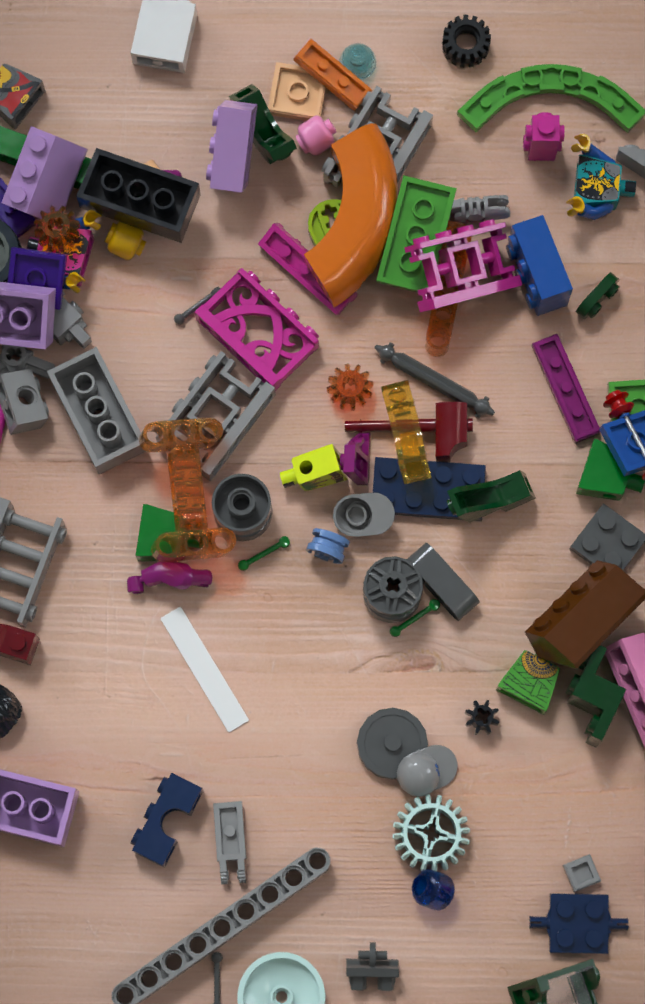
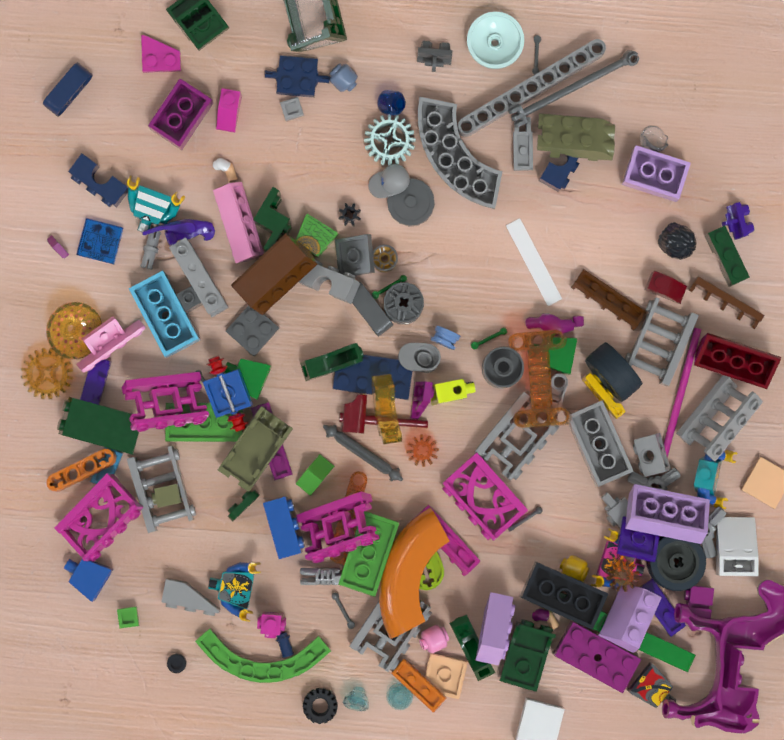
camera: 175 degrees right, 10 degrees up
(33, 860) = (653, 139): none -> clear hair
(80, 507) = (613, 372): none -> black wheel
(89, 121) = (581, 645): none -> magenta brick
(91, 620) = (609, 299): none -> reddish brown hinge
(92, 480) = (606, 396): none -> yellow hinge
(150, 854) = (576, 137): none -> olive piece
(159, 481) = (558, 393): none -> light grey piece
(185, 124) = (527, 655): none -> dark green bracket
(238, 881) = (522, 113): none -> dark grey hinge
(336, 810) = (451, 157): none -> light grey brick
(416, 52) = (356, 700): none -> clear light blue brick
(432, 150) = (335, 596): none -> dark grey hinge
(435, 651) = (392, 258): none -> pearl gold wheel
(469, 655) = (355, 255): none -> dark grey plate
(483, 607) = (343, 286): none -> light grey arch
(499, 346) = (315, 475): none -> bright green slope
(508, 924) = (343, 77): none -> sand blue head
(520, 114) = (284, 644): none -> dark blue pin
(588, 370) = (255, 448): none -> olive piece

